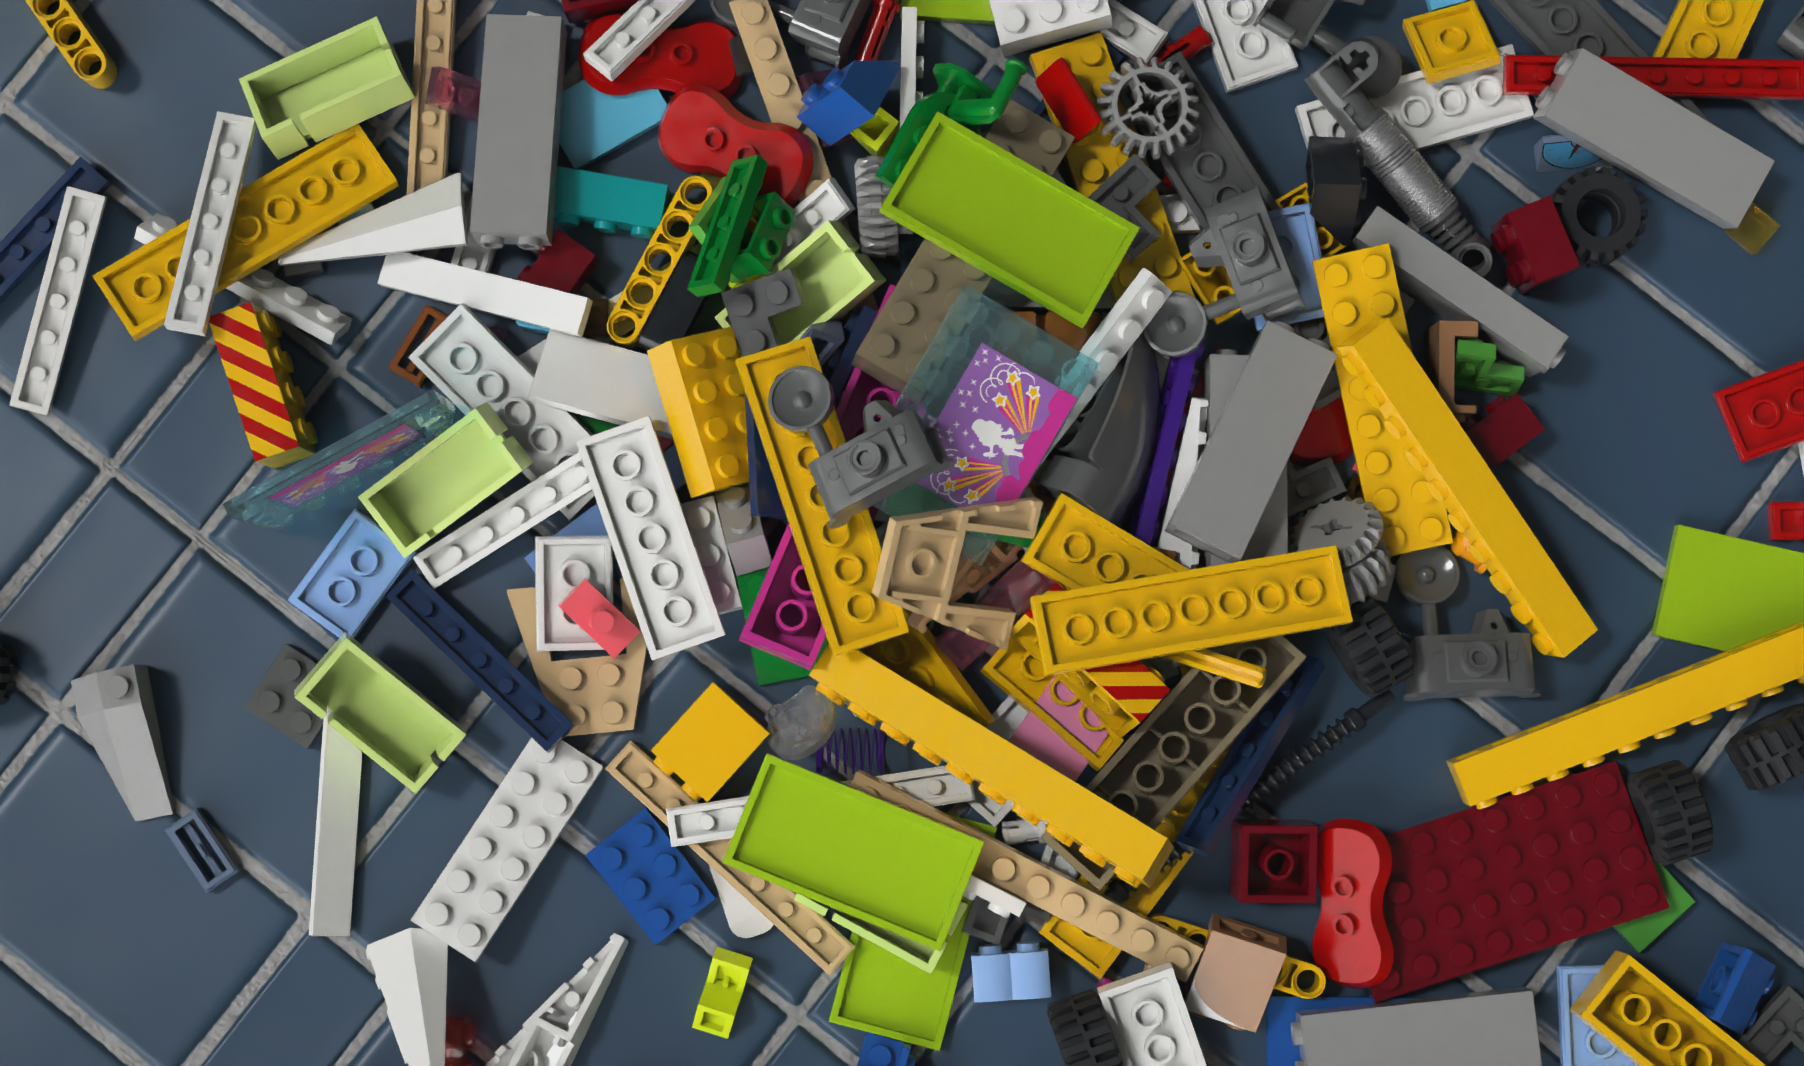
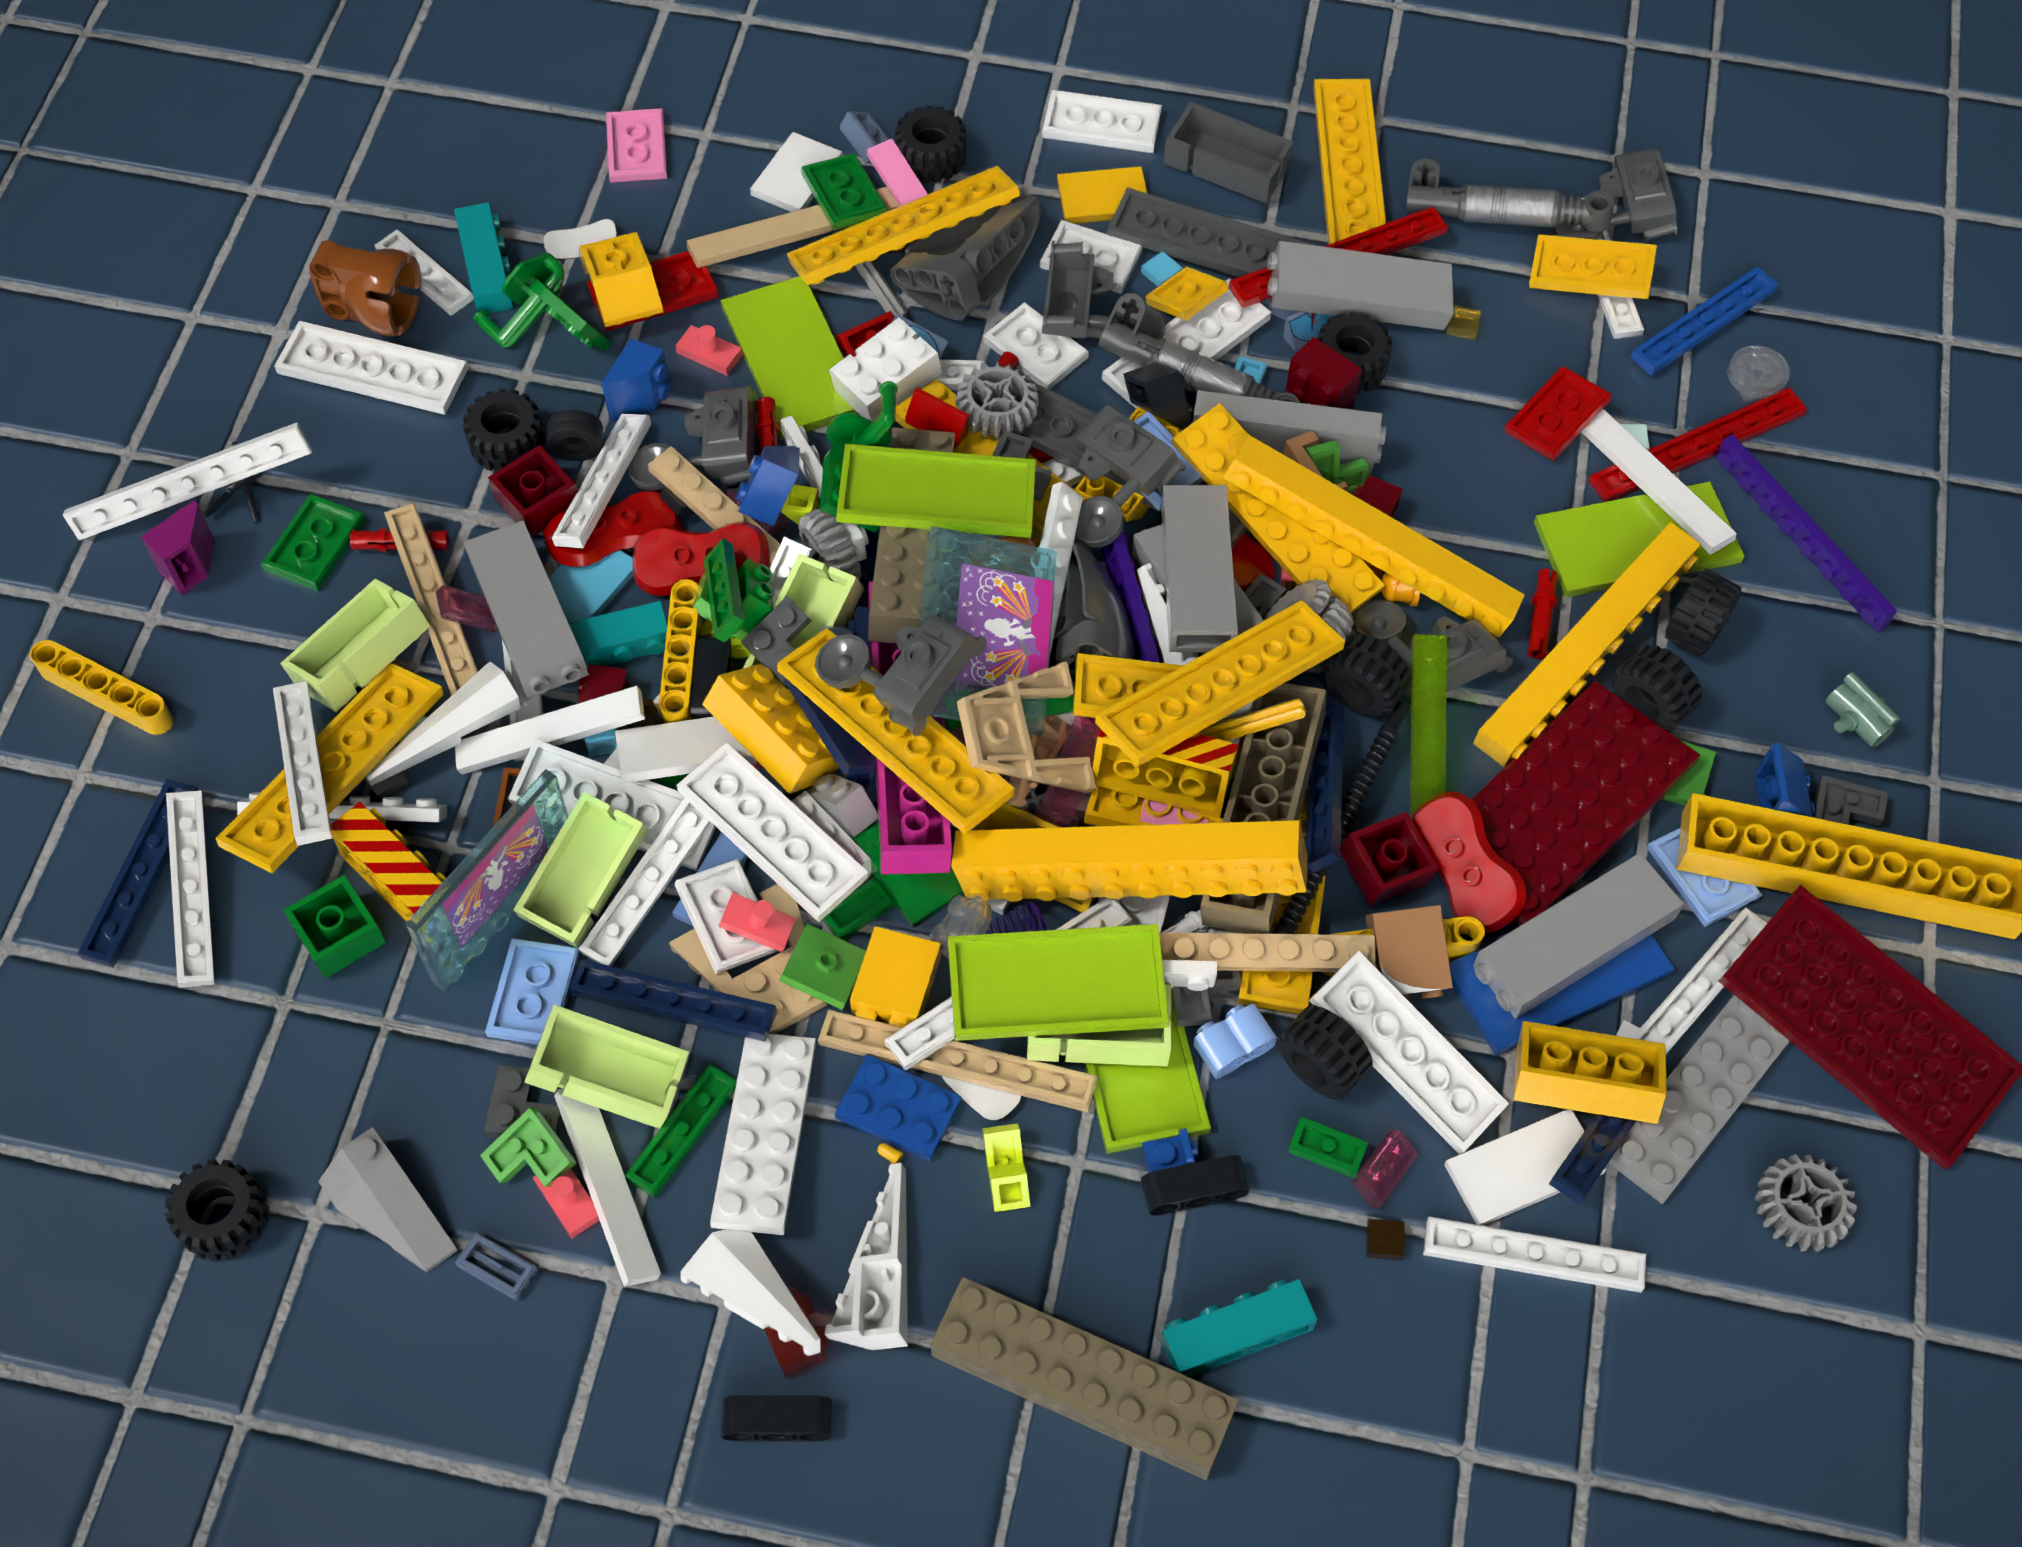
camera: 30 degrees left, 25 degrees down
(182, 416) = (334, 926): none -> green brick
(282, 751) = (530, 1142): none -> bright green plate
(295, 812) = (570, 1203): none -> coral tile
(436, 797) = (681, 1131): none -> green tile
(620, 918) = (890, 1153): none -> yellow piece
(645, 697) = (823, 966): none -> bright green plate
(718, 648) = (859, 909): none -> green tile
(1401, 732) = (1428, 718): none -> clear neon green plate
(1466, 180) = (1252, 367): none -> medium azure tile
(1612, 647) = (1543, 601): none -> red pin

